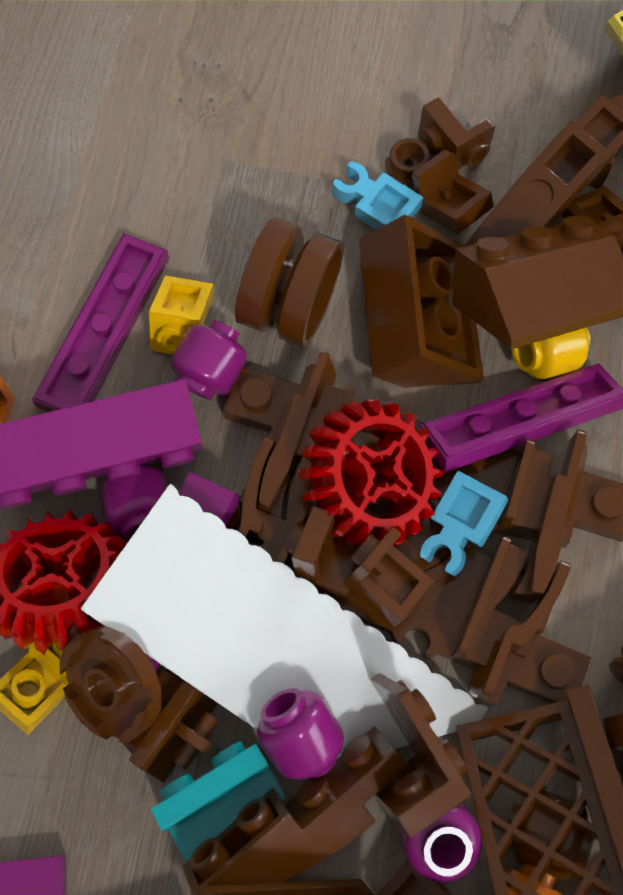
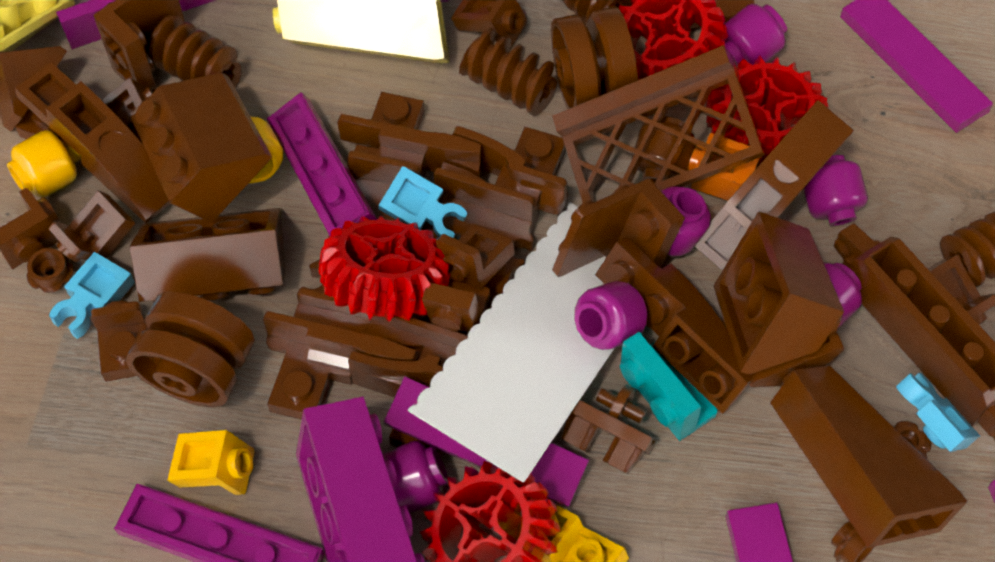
camera: 90 degrees left, 10 degrees down
(110, 684) = (584, 464): reddish brown tile -> none
(209, 359) = (264, 424): magenta head -> none
(333, 222) = (117, 330): none -> reddish brown bracket
(524, 138) = (43, 164): none -> yellow head

